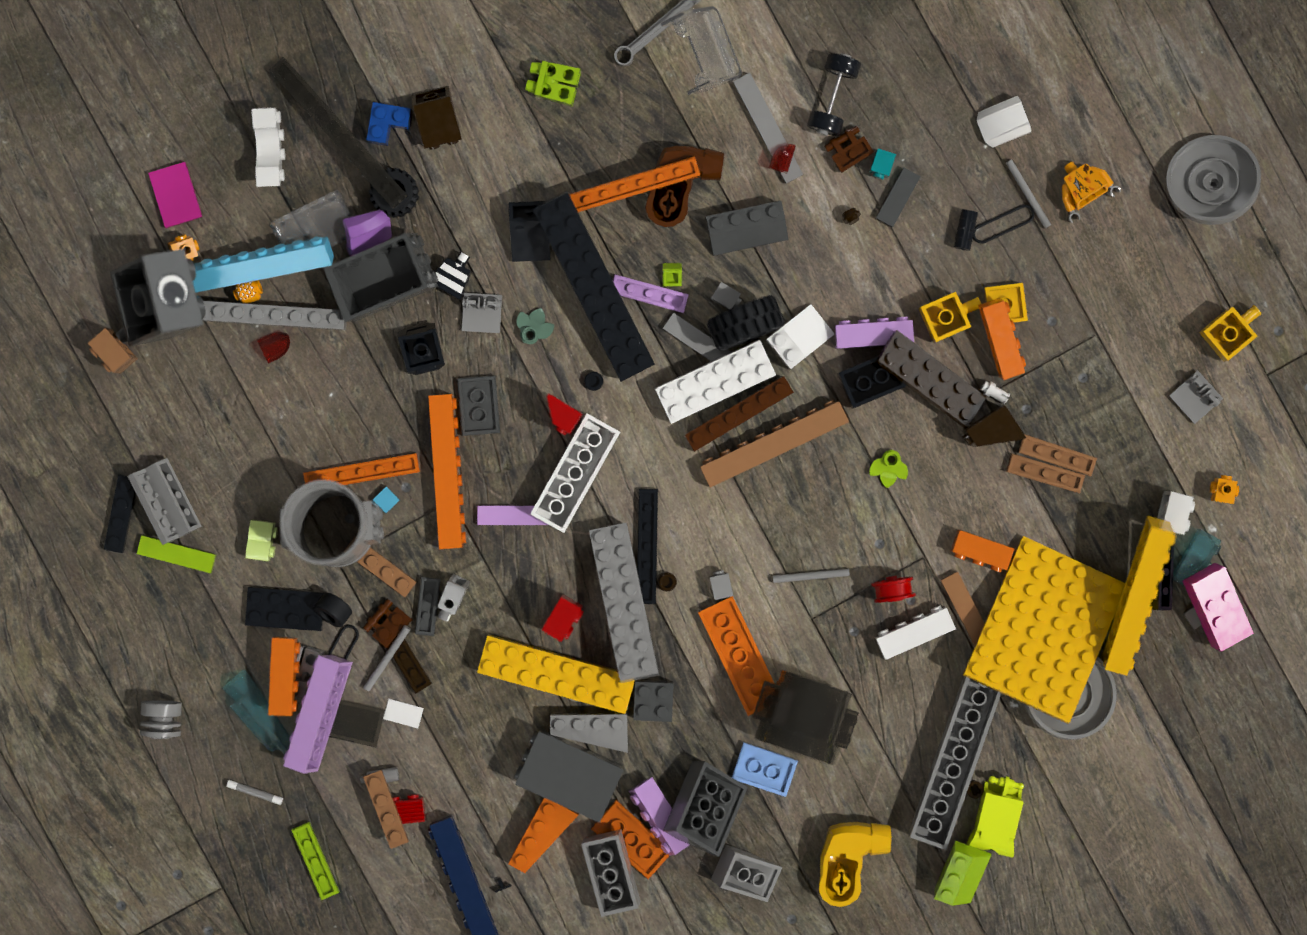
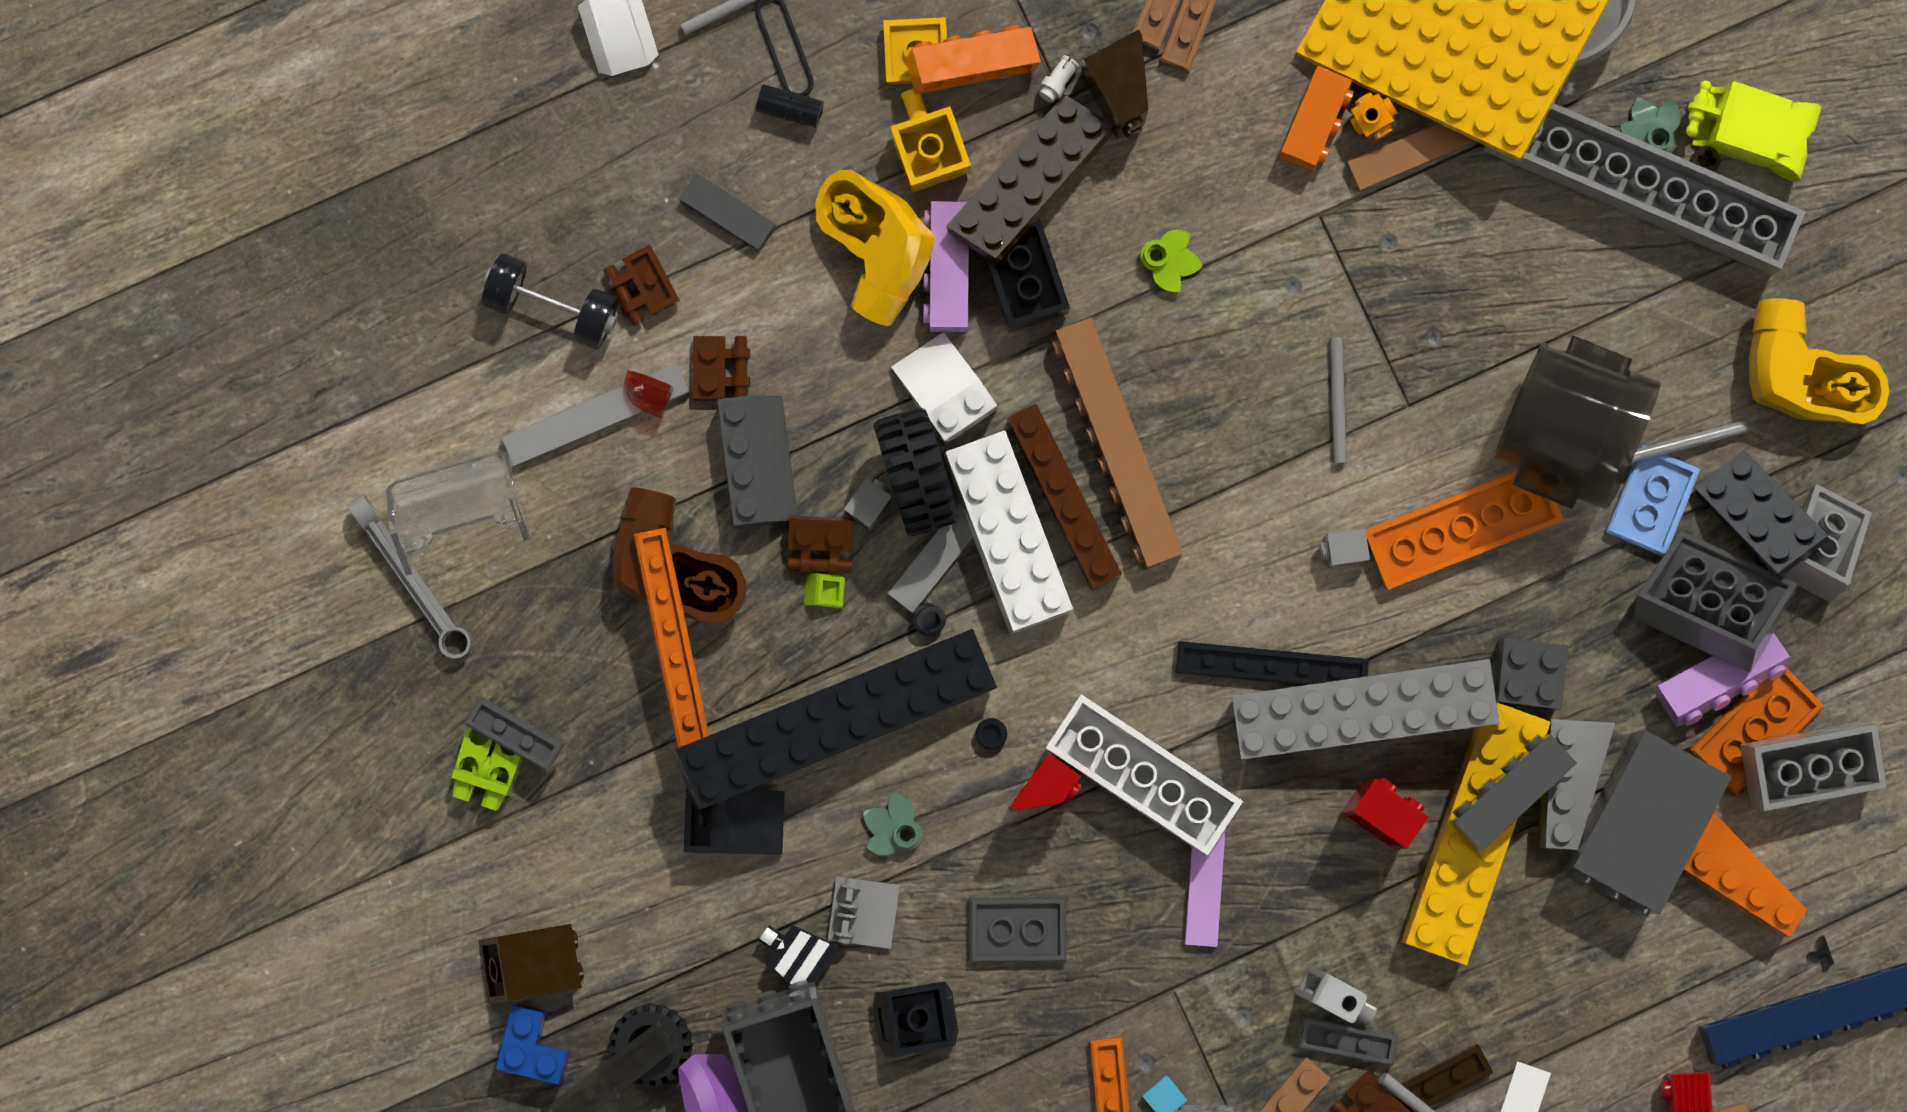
camera: 95 degrees left, 5 degrees down
(446, 471) = (1125, 992): orange brick -> none
(571, 95) = (514, 733): none -> dark grey tile
(580, 692) = (1513, 792): none -> dark grey brick
(650, 294) = (854, 627): lavender tile -> none
(659, 338) = (928, 619): none -> black tile
(667, 582) = (1333, 637): dark brown plate -> none
(705, 269) = (820, 534): none -> reddish brown plate
(760, 833) = (1761, 514): none -> black plate
(801, 787) = (1690, 441): none -> light grey bar
(802, 194) = (710, 367): none -> reddish brown plate
(851, 216) = (752, 289): dark brown plate -> none
(882, 164) = (670, 232): teal brick -> none
(890, 291) = (880, 232): none -> yellow piece
(893, 589) = (1371, 265): red wheel -> none
(914, 633) = (1443, 237): white brick -> none
(961, 874) = (1845, 192): lime slope -> none
(989, 591) = (1382, 124): none -> light orange brick
(997, 756) = (1650, 121): none -> sand green plate

